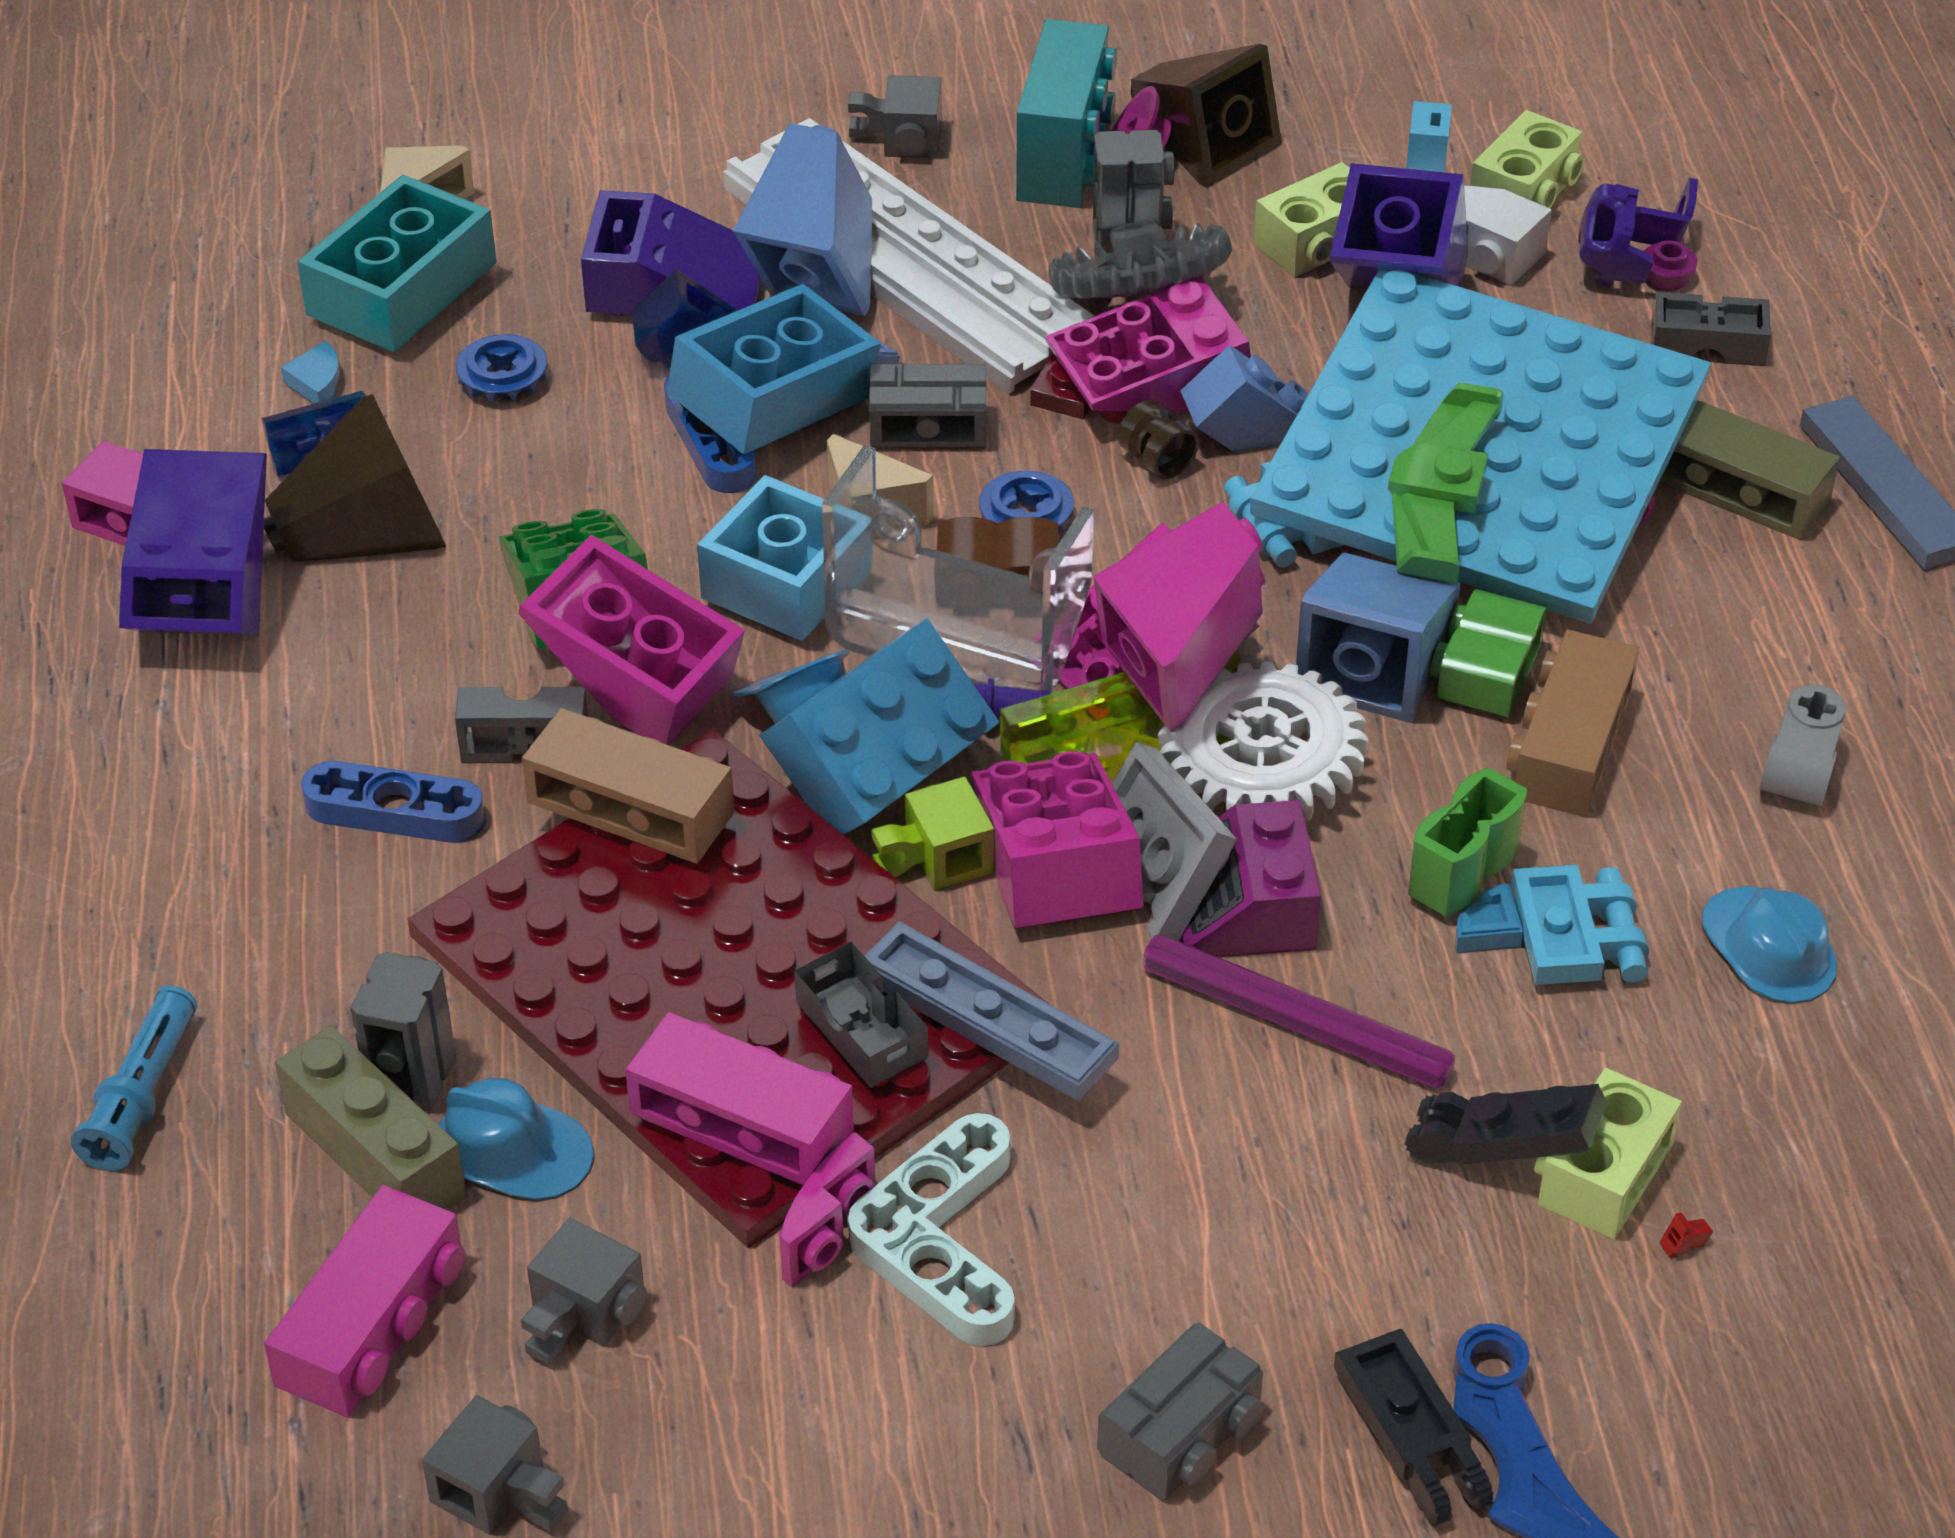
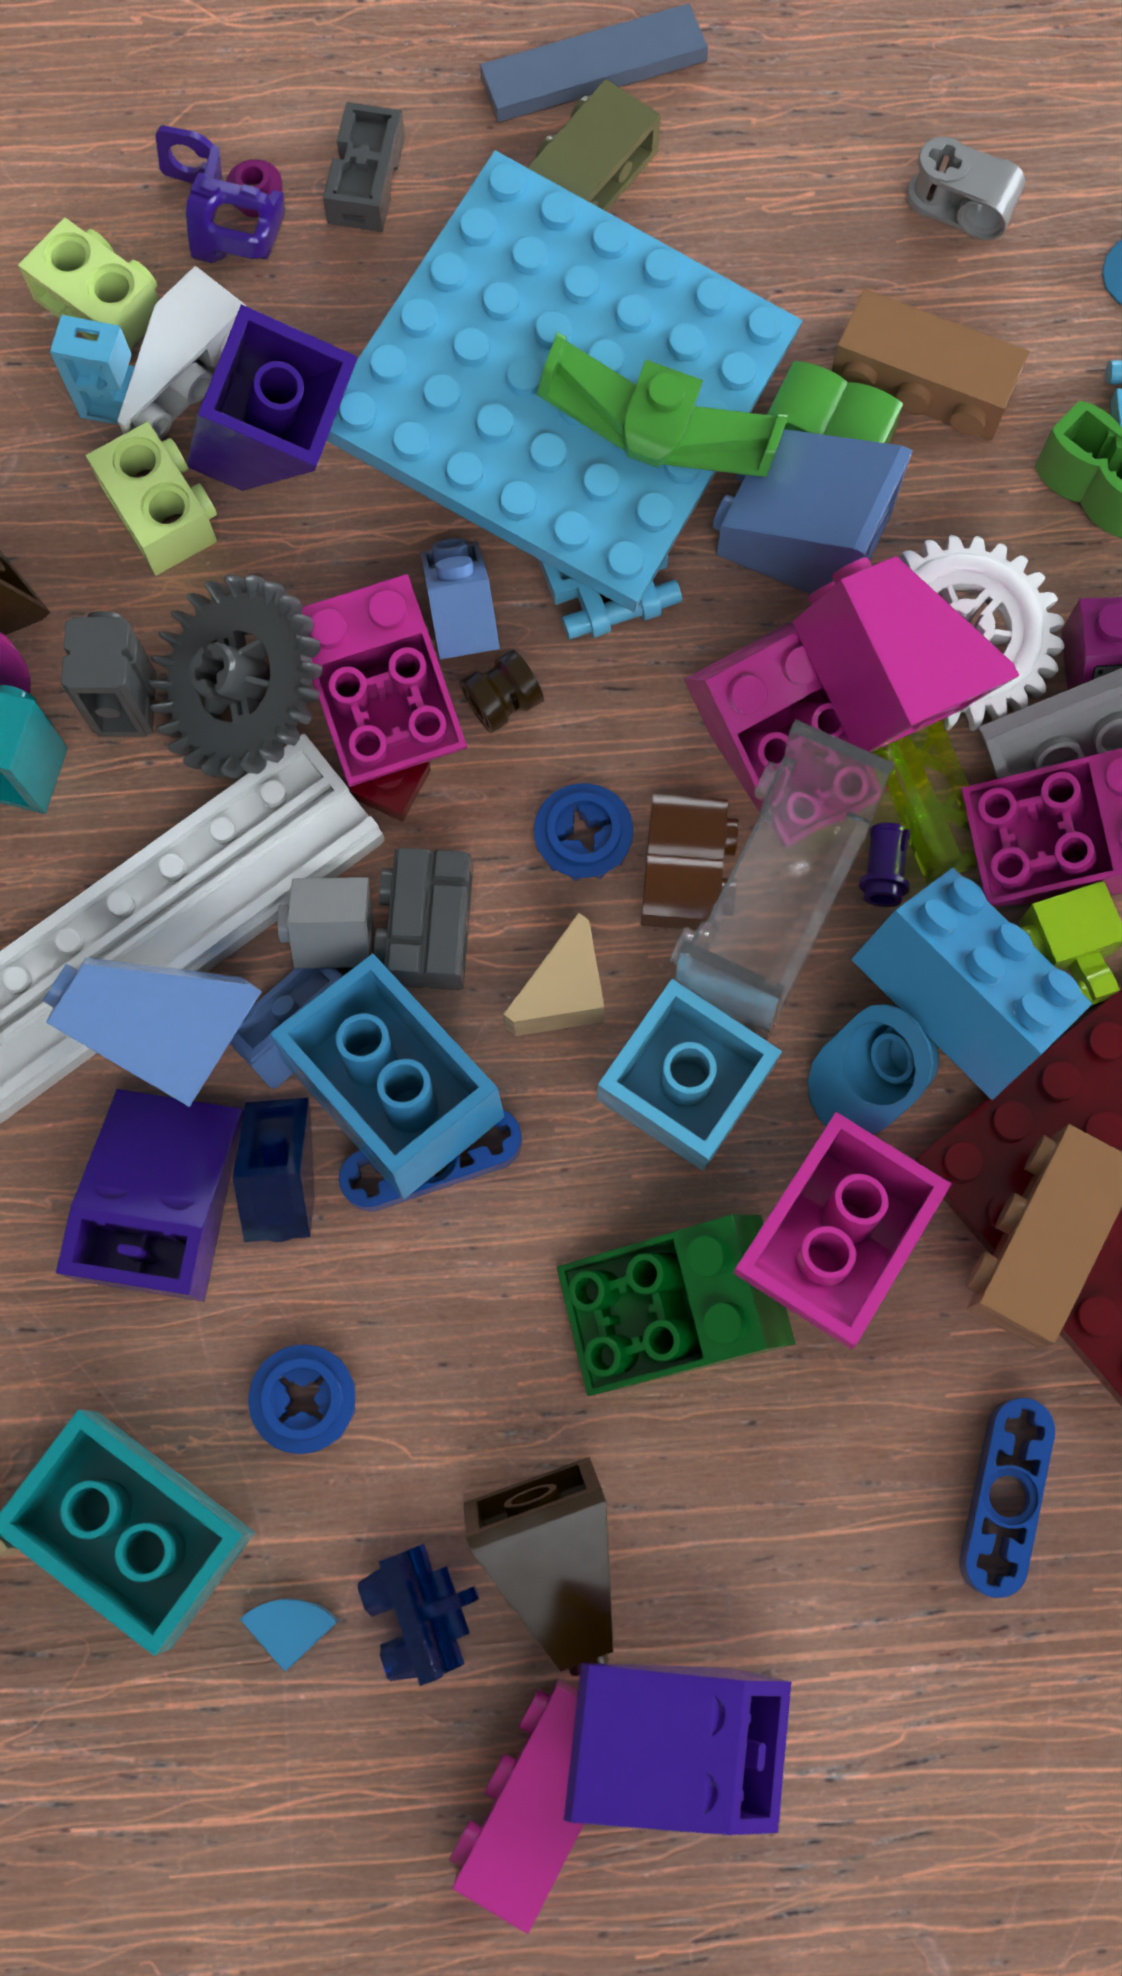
camera: 85 degrees left, 30 degrees up
(508, 725) = (915, 1356): dark grey piece -> none
(918, 333) = (328, 922): none -> light grey brick

